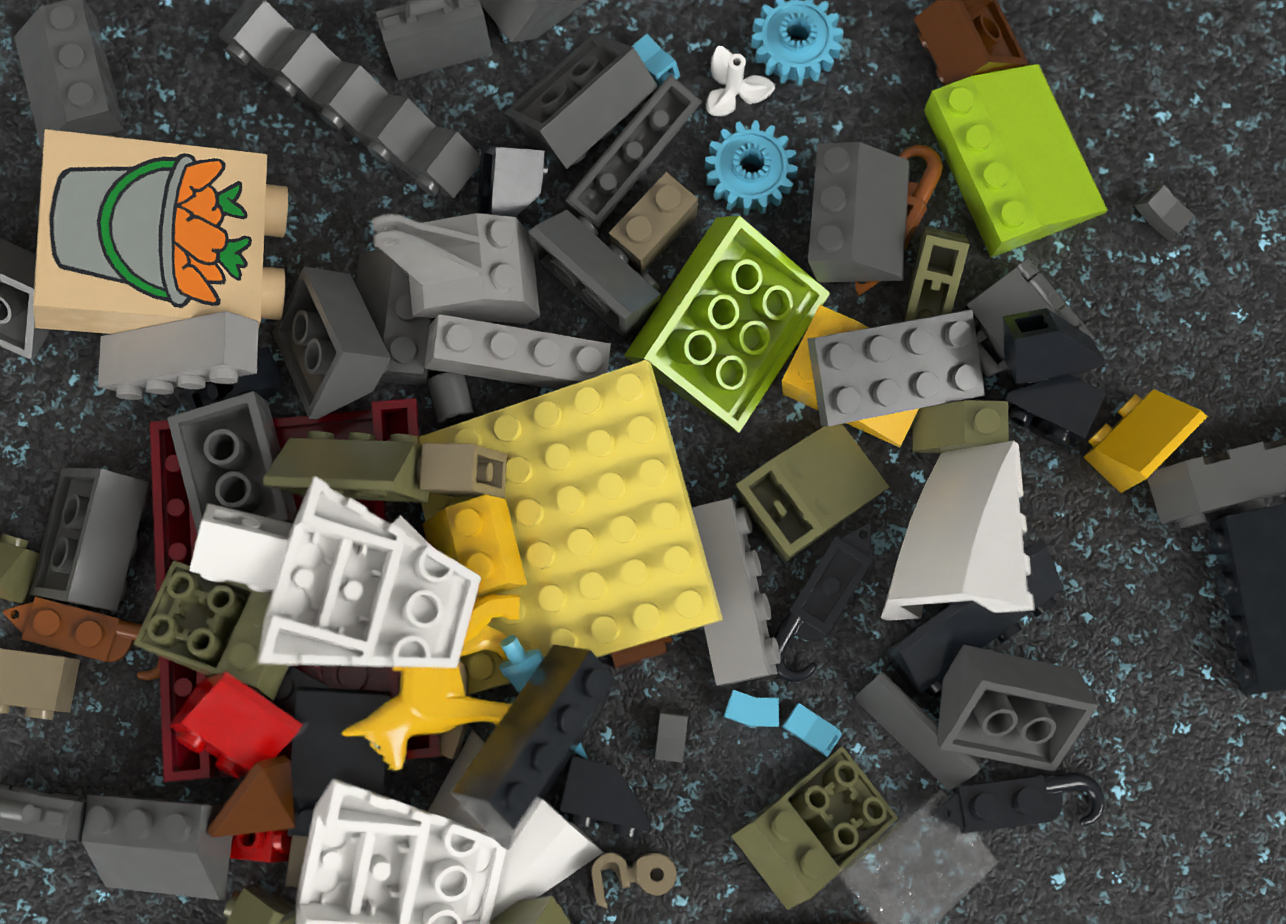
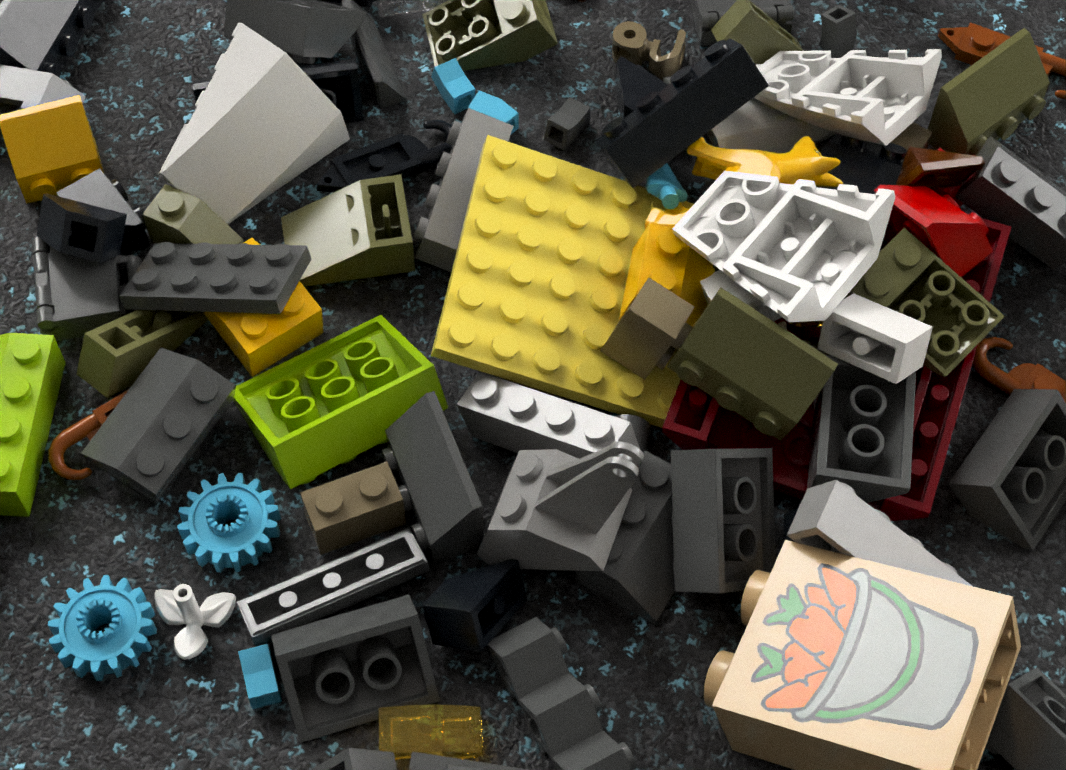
camera: 155 degrees left, 20 degrees down
(494, 77) = (431, 729): none -> clear yellow slope

